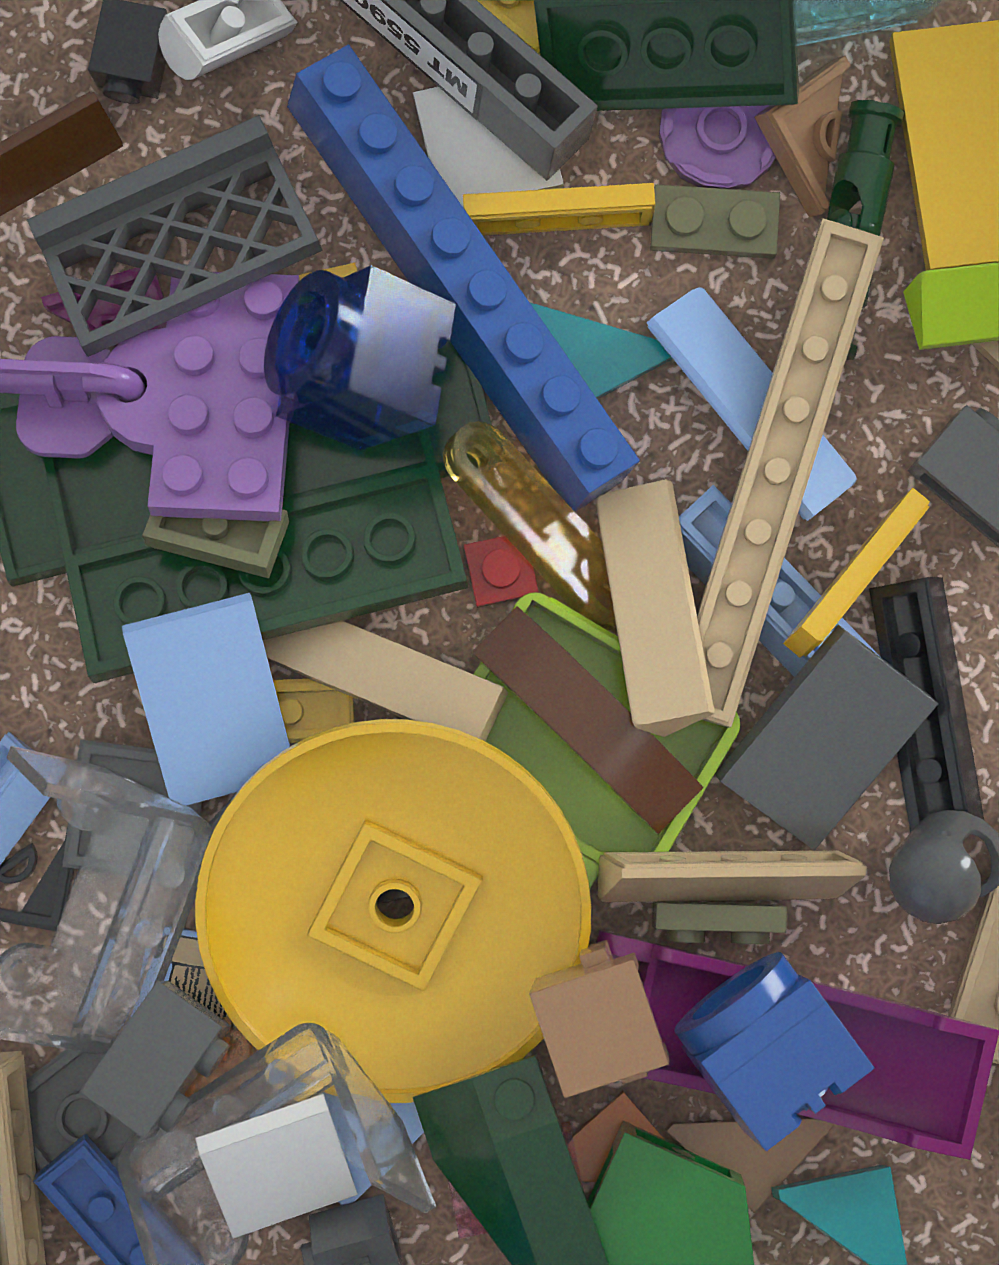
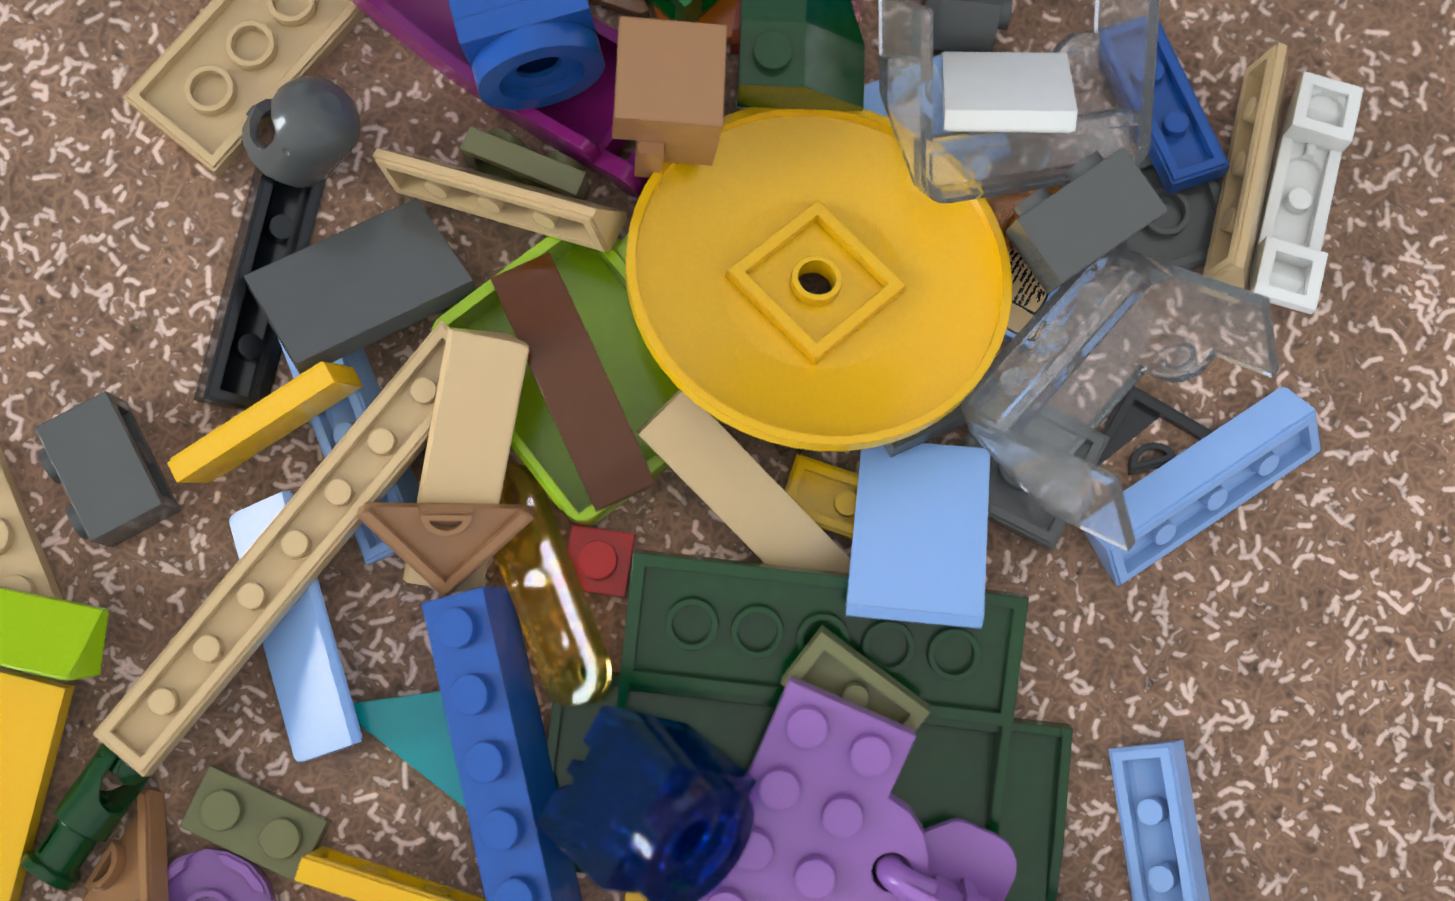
camera: 160 degrees left, 5 degrees down
(642, 527) = (445, 539): none -> medium nougat tile

